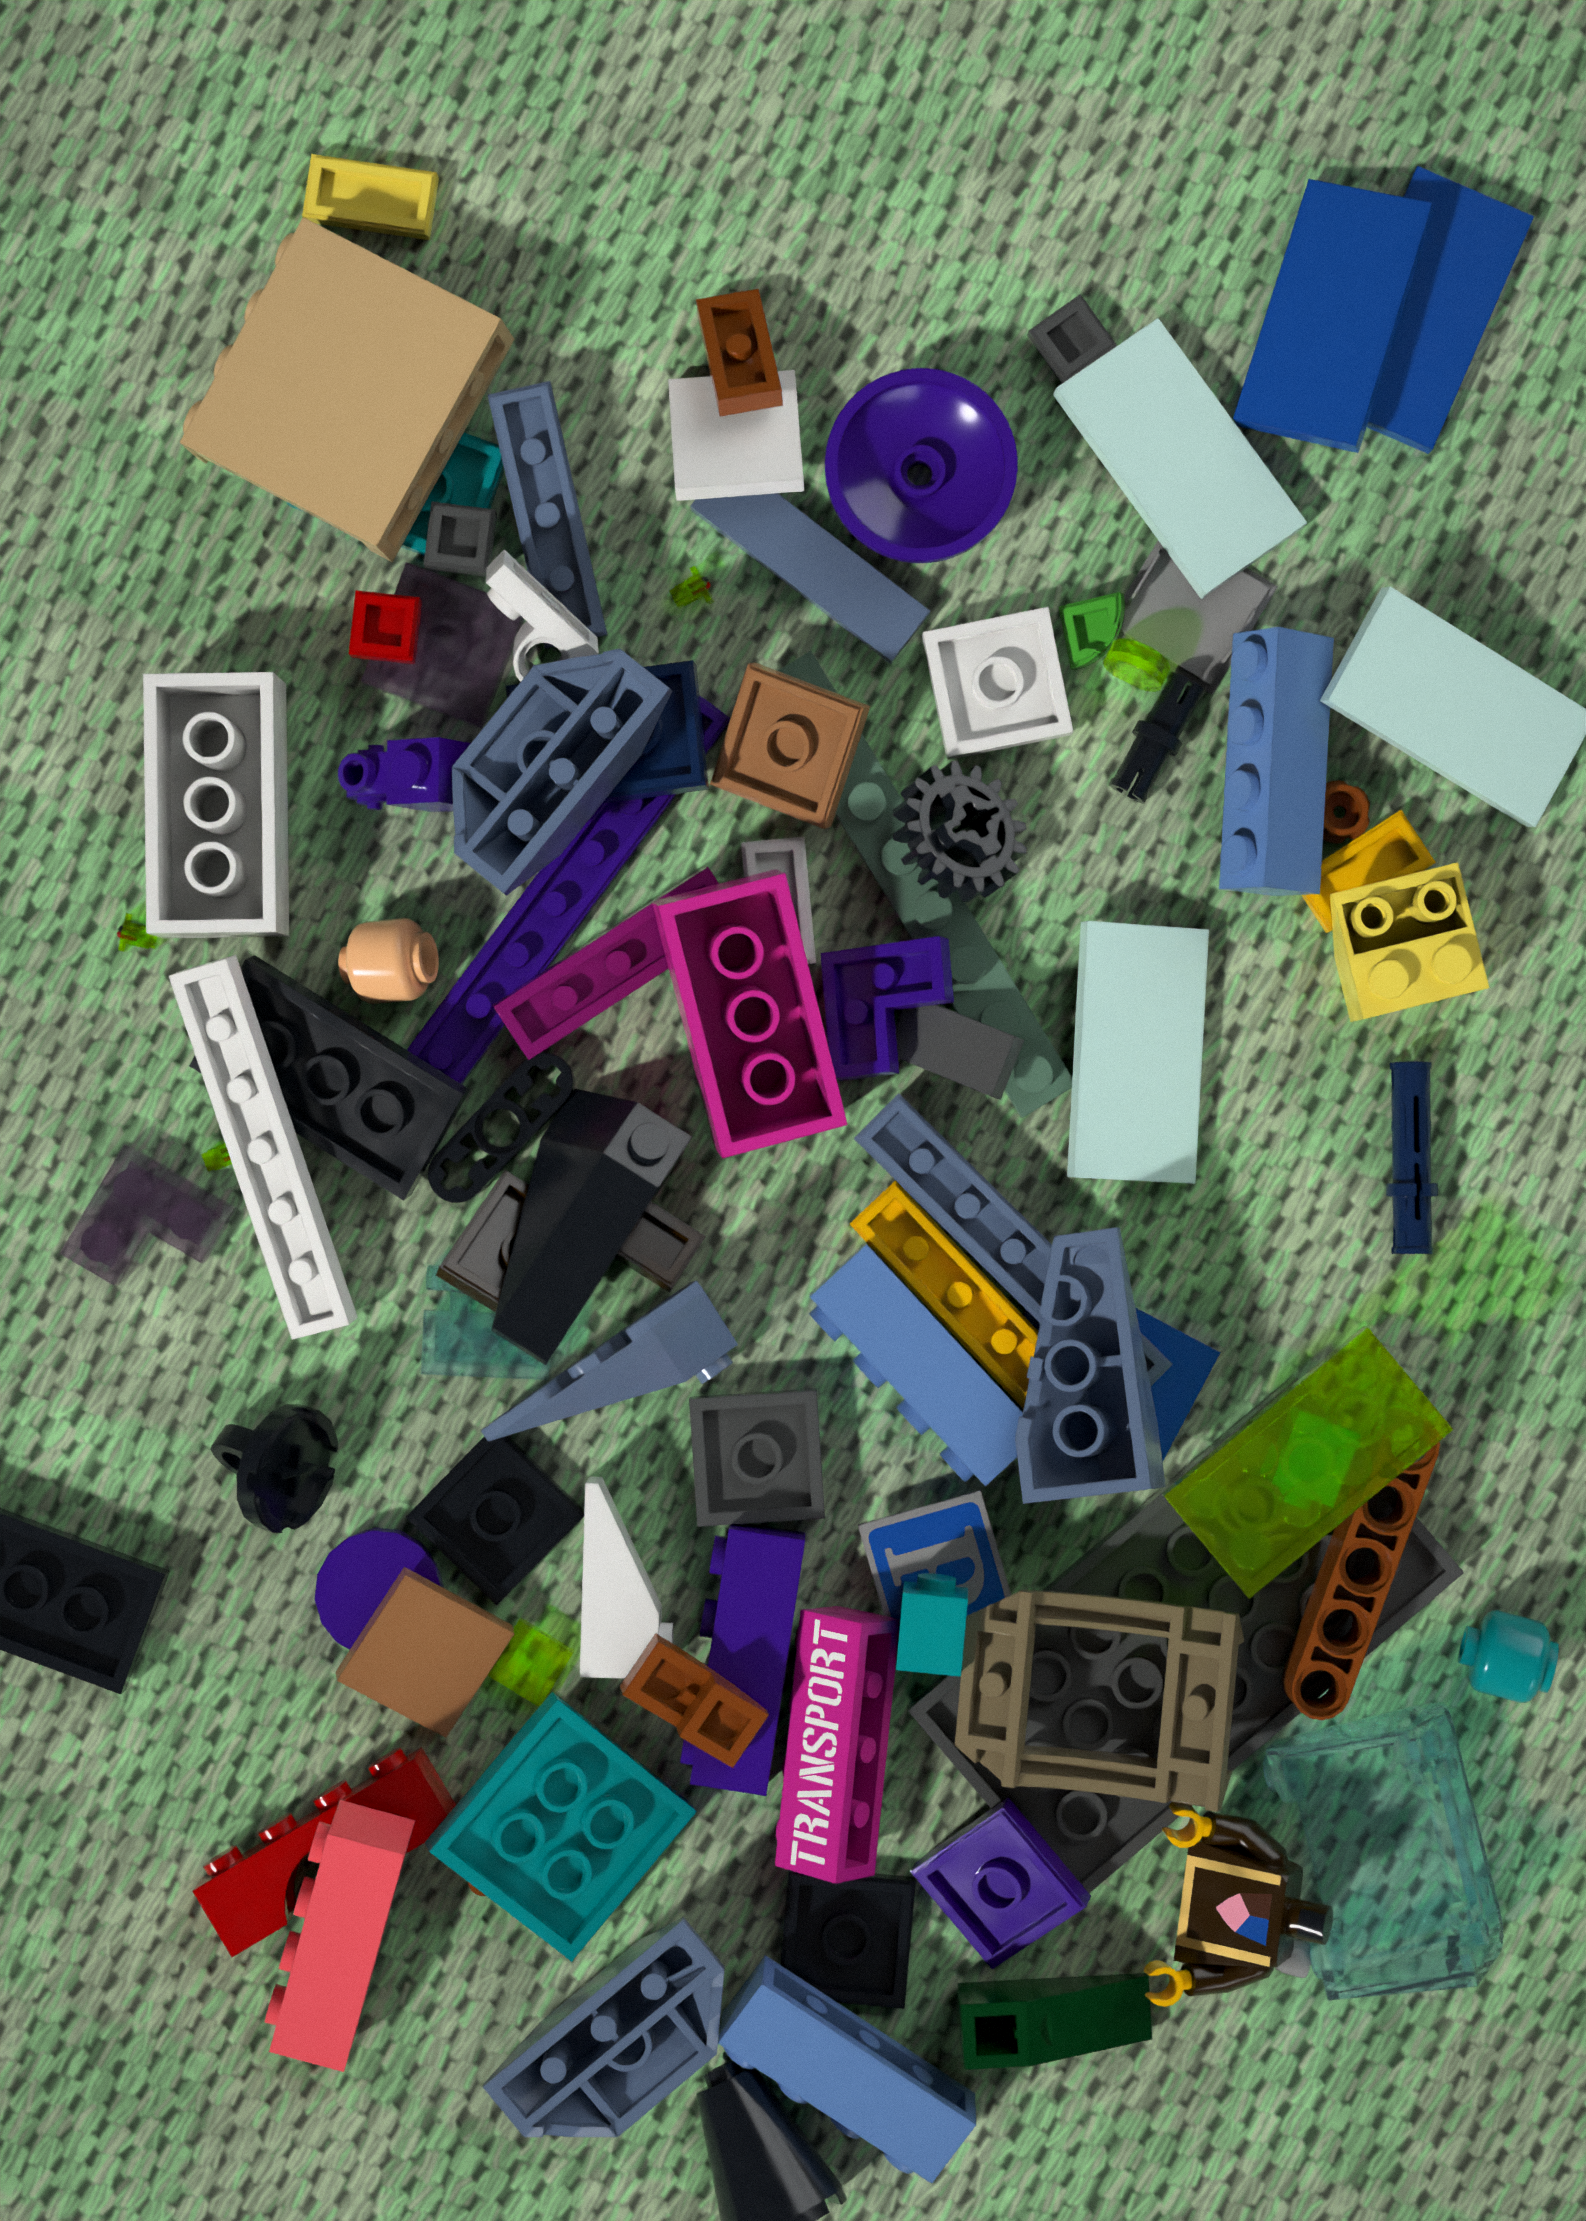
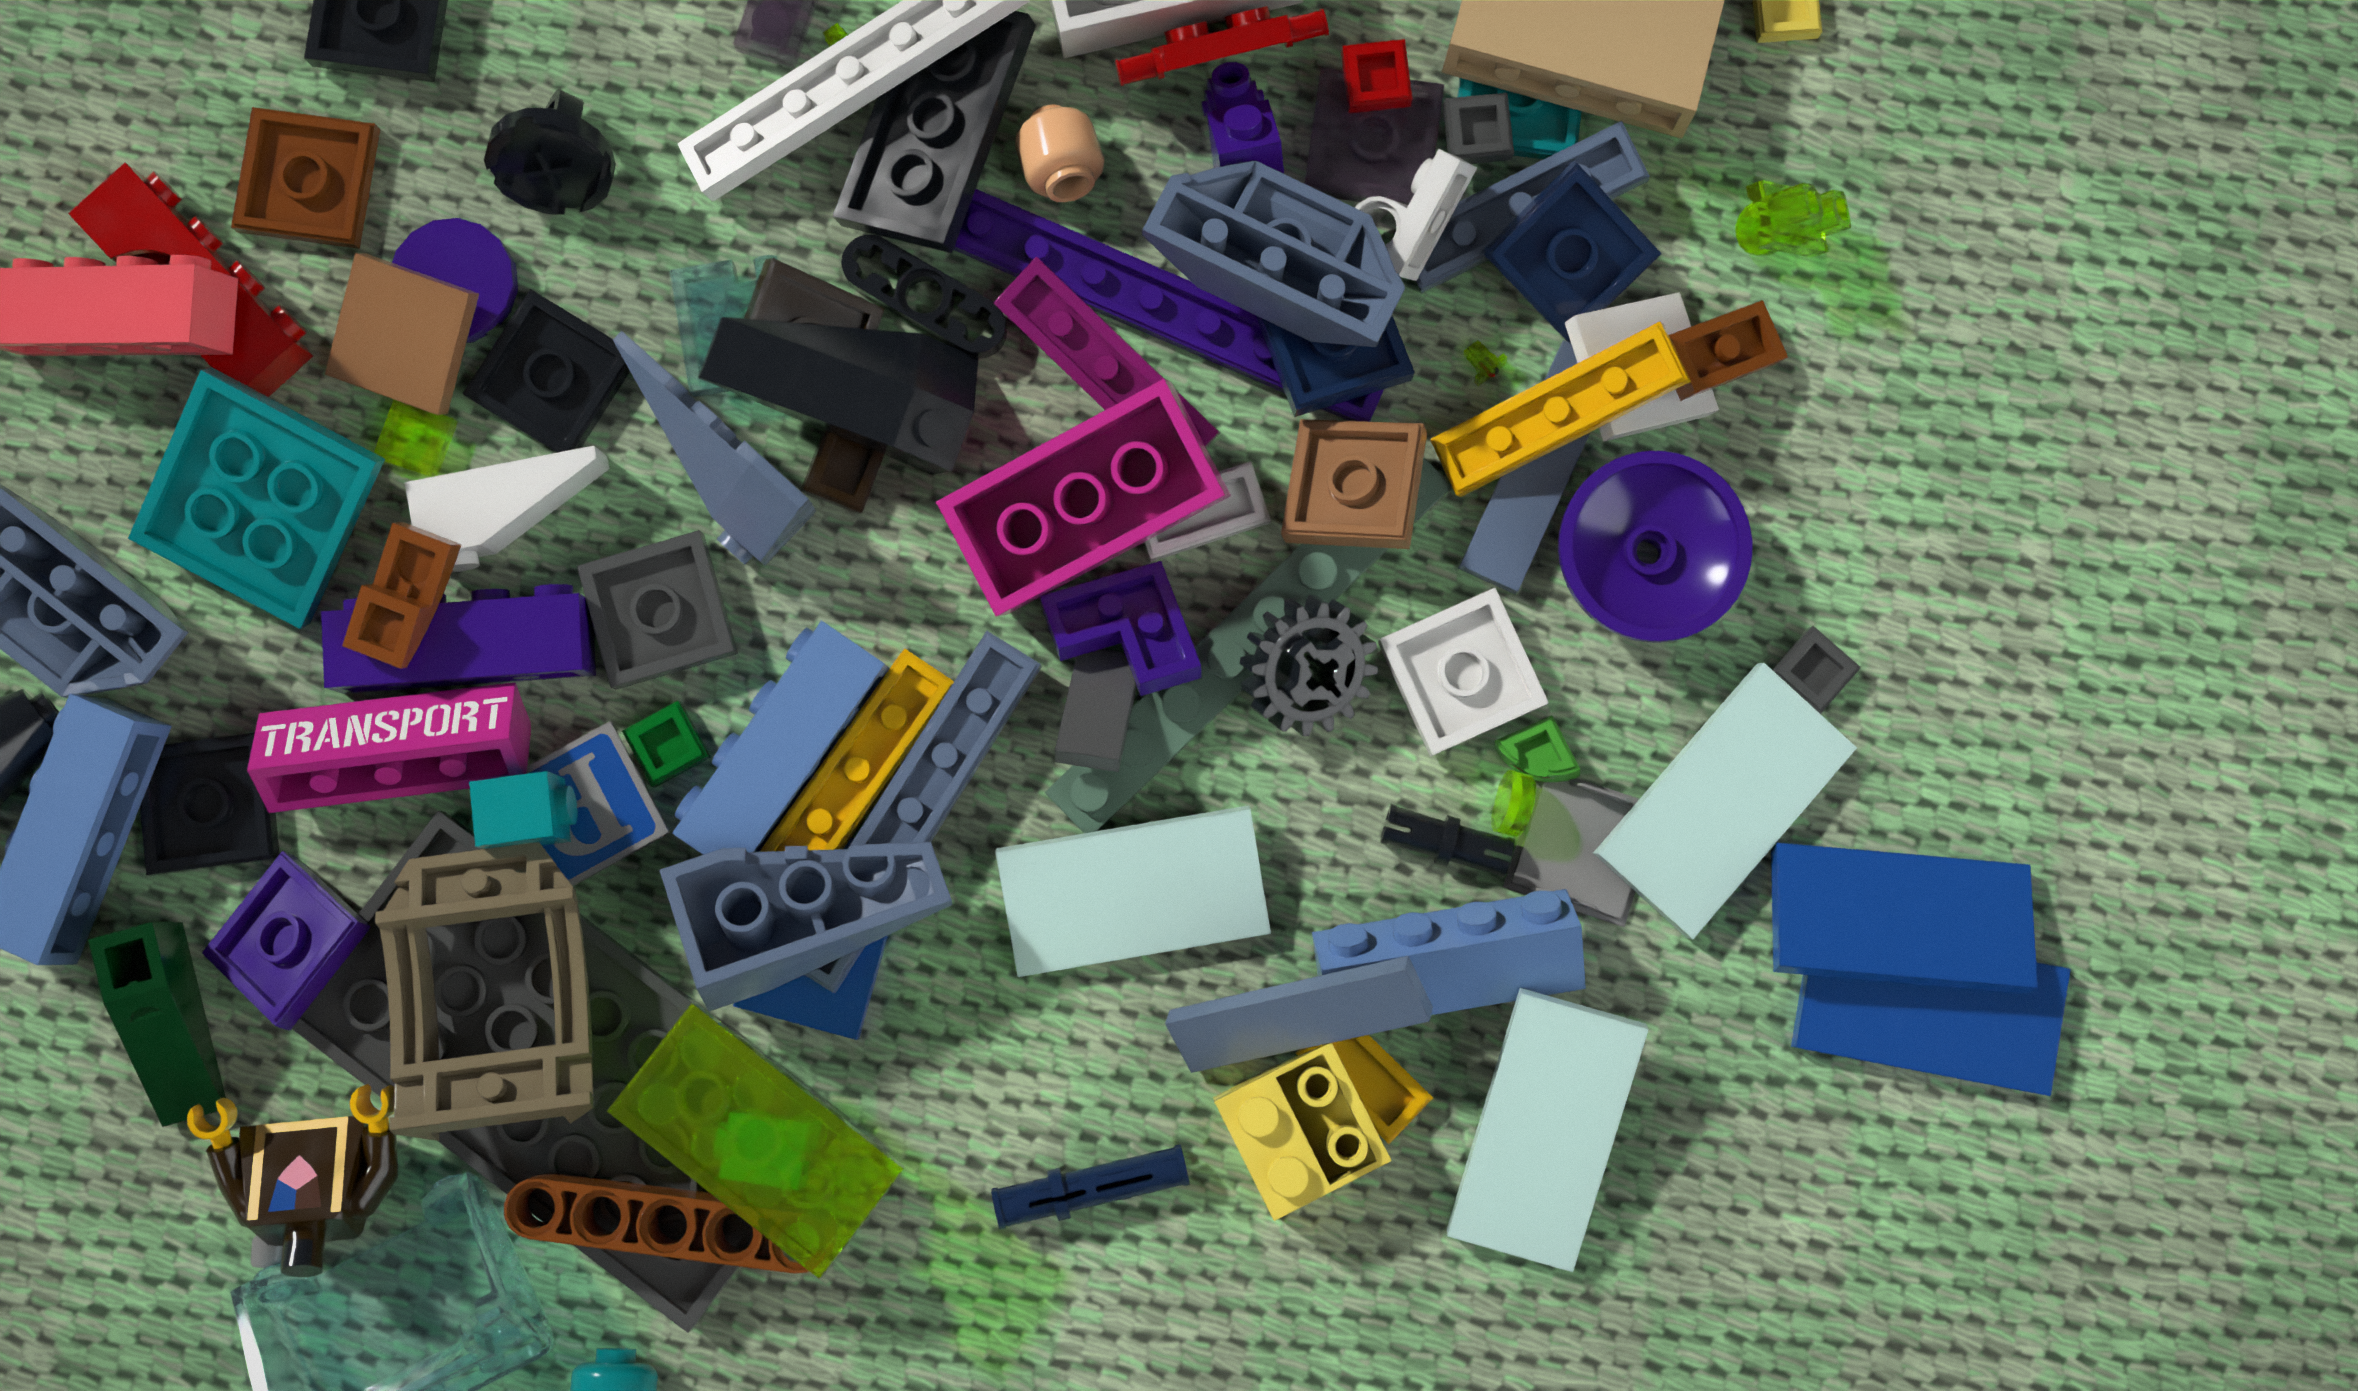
camera: 80 degrees right, 5 degrees down
(239, 1718) = (305, 177): none -> dark orange tile
(319, 758) = (1244, 33): none -> red plate
(605, 477) = (1571, 249): none -> dark blue tile
(623, 252) = (1790, 219): none -> clear neon green hips
(765, 525) = (1560, 409): none -> yellow tile
(889, 1477) = (666, 744): none -> green tile
(1299, 918) = (1300, 1014): none -> sand blue tile
(1356, 809) = (1426, 1052): dark orange plate -> none

